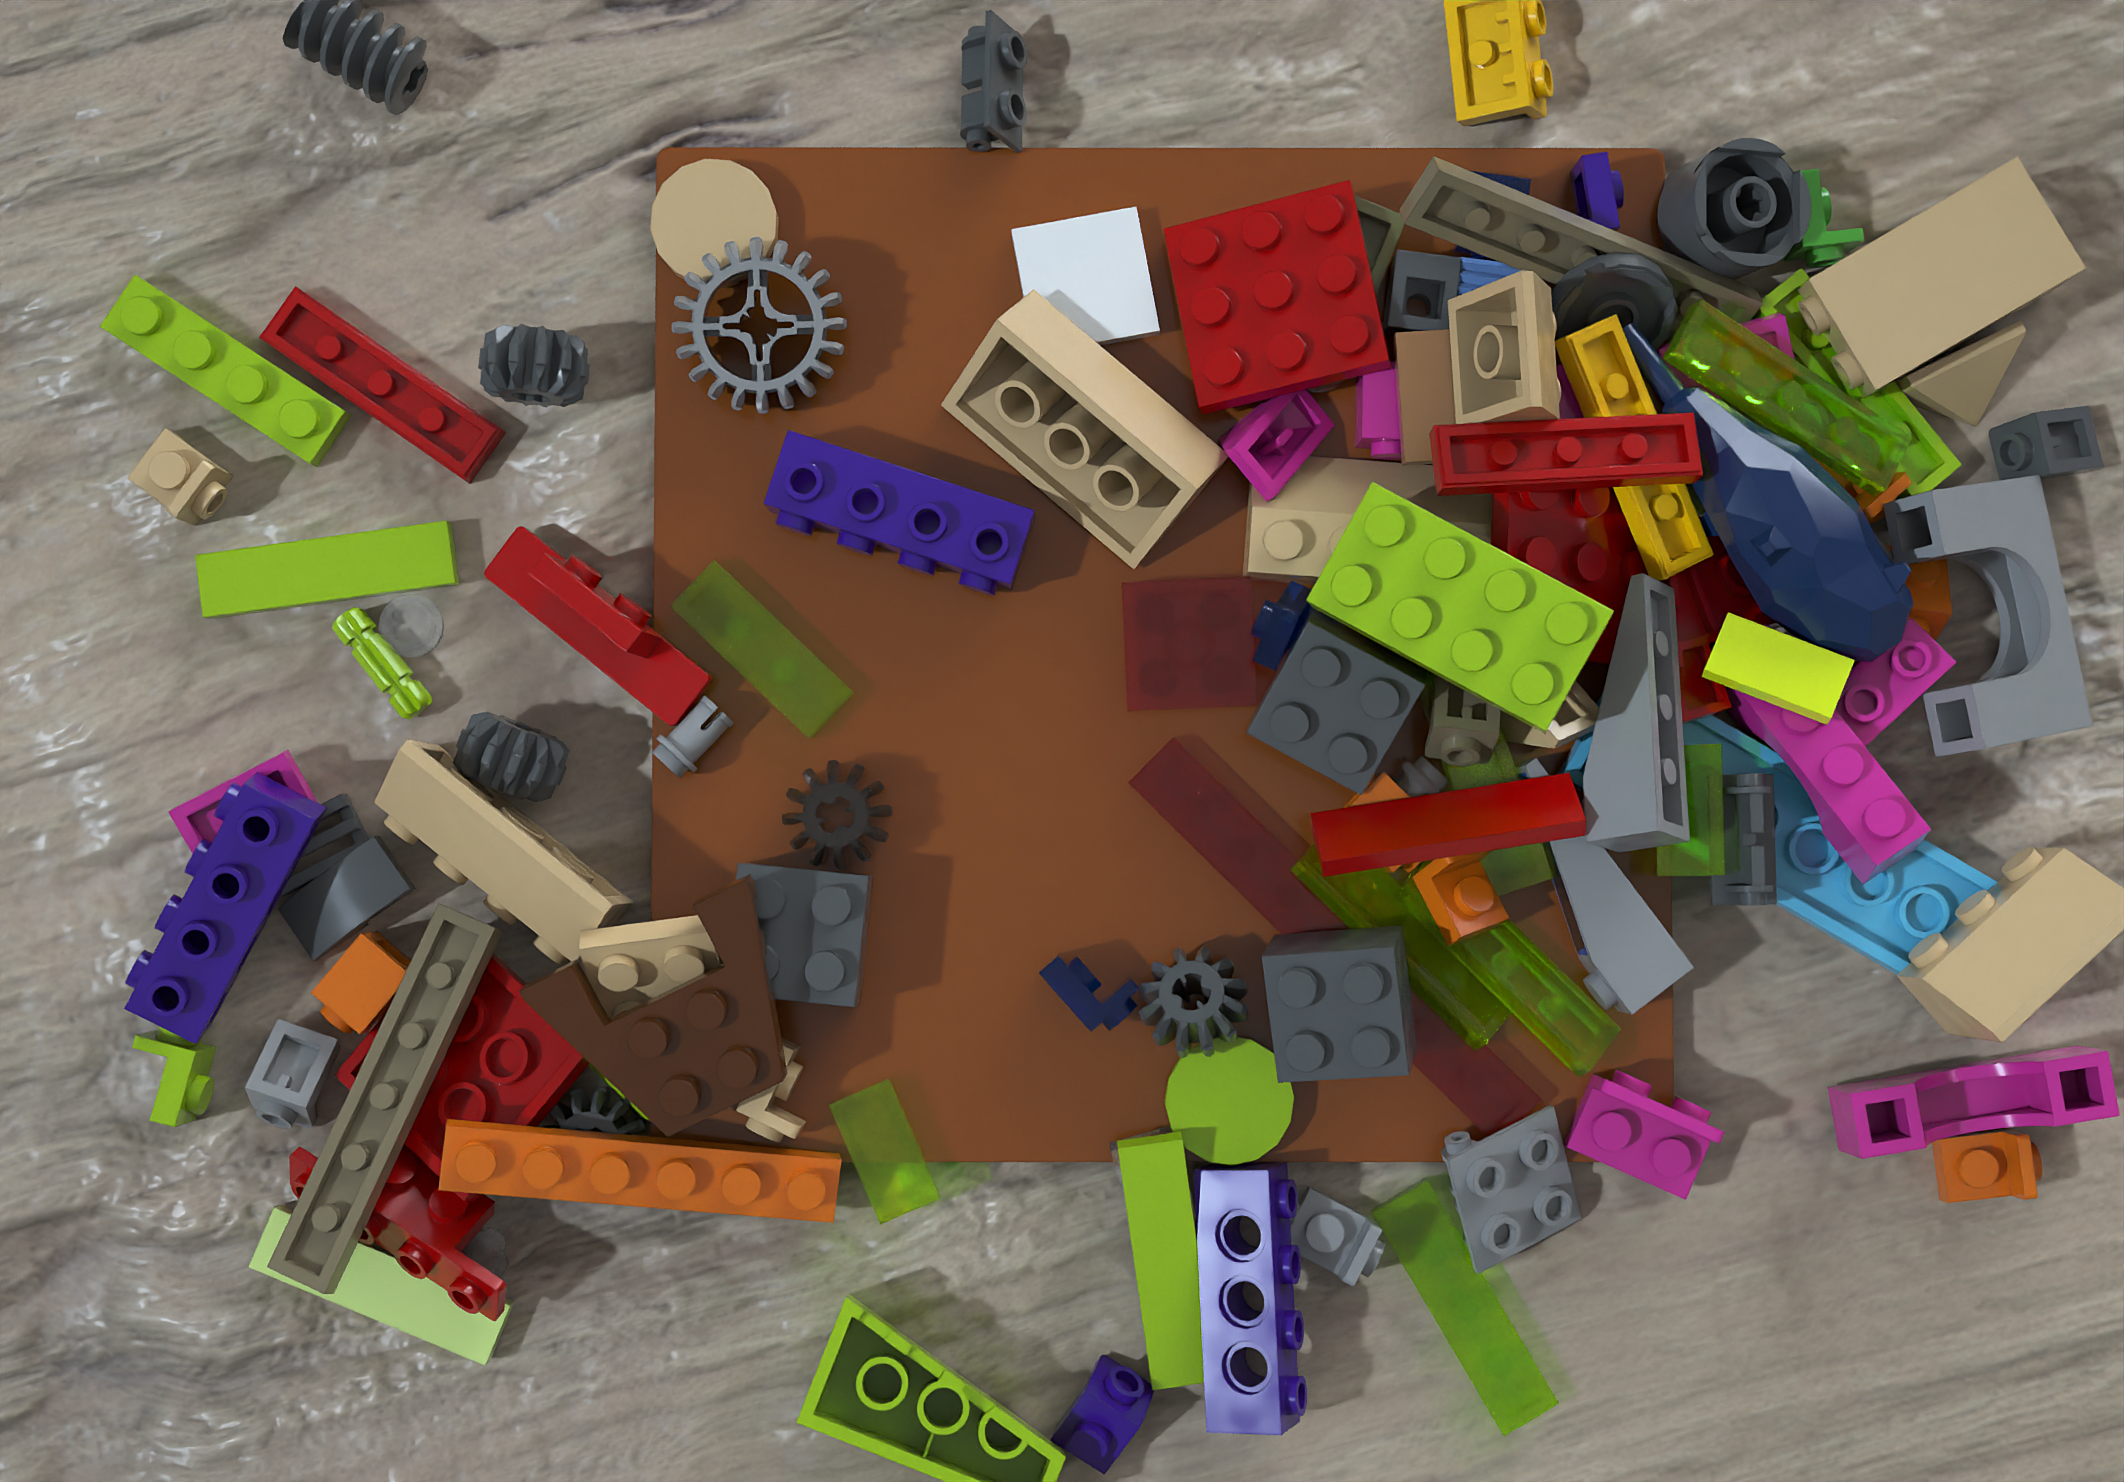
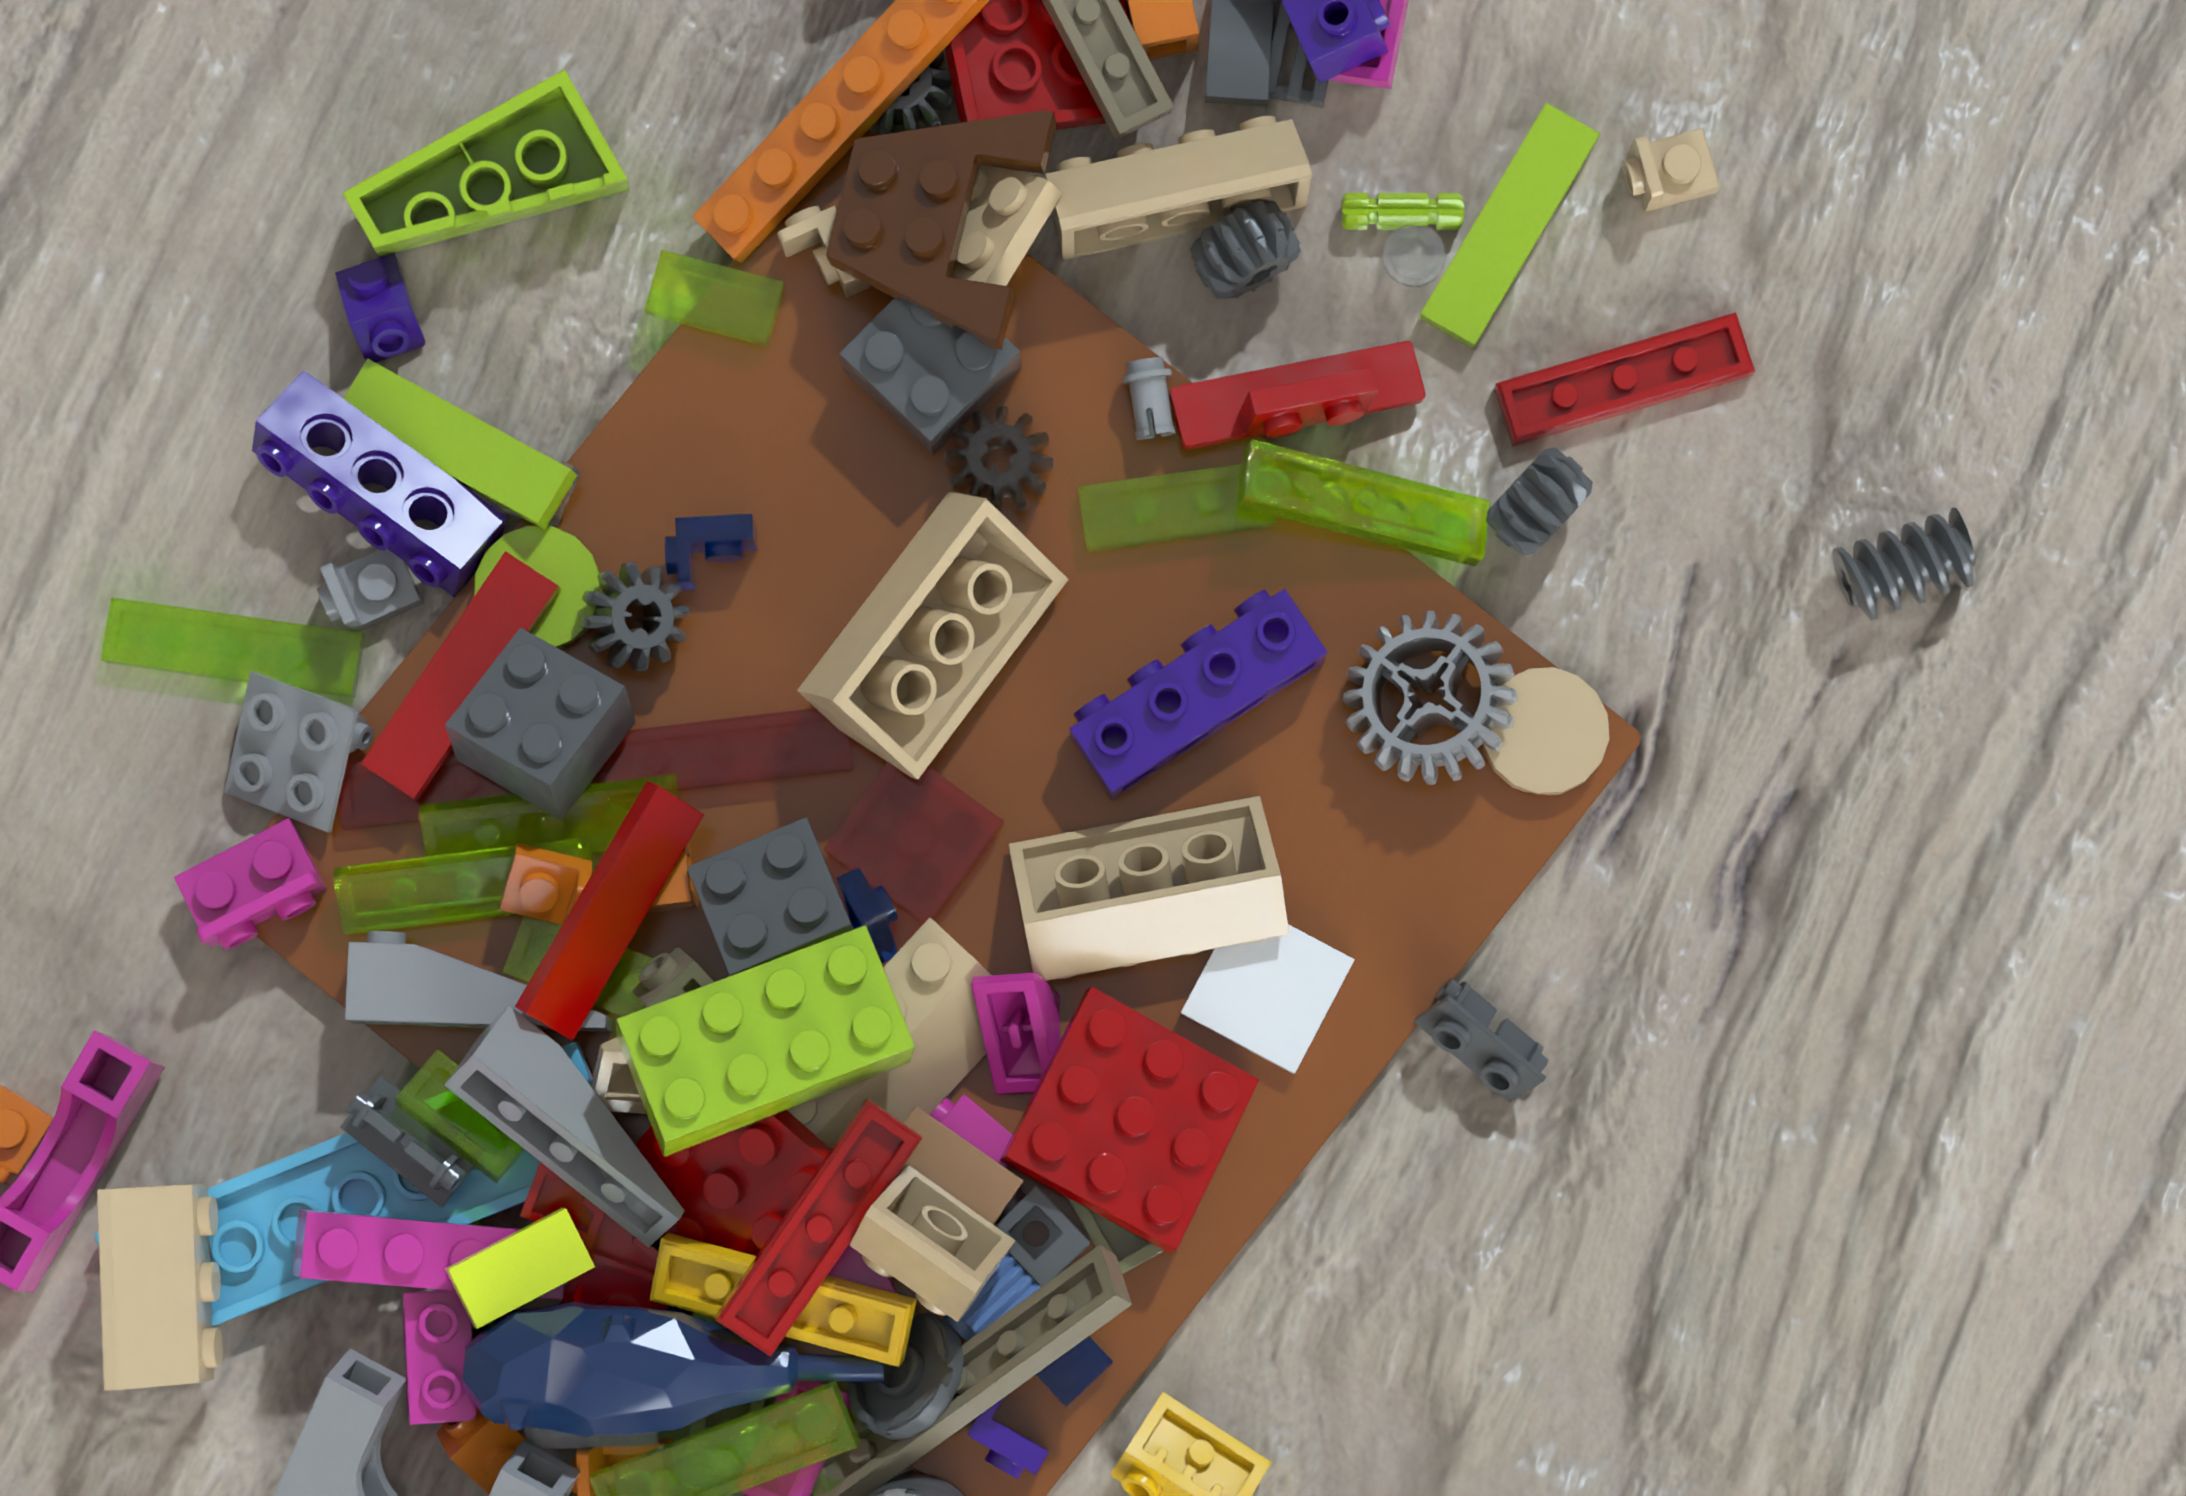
camera: 130 degrees right, 5 degrees down
(225, 370) = (1731, 267): lime plate -> none
(644, 503) = (1363, 503): none -> clear neon green plate
(1018, 754) = (933, 633): none -> tan slope
(1274, 1112) = (415, 737): none -> red tile
(1419, 778) = (661, 931): clear plate -> none

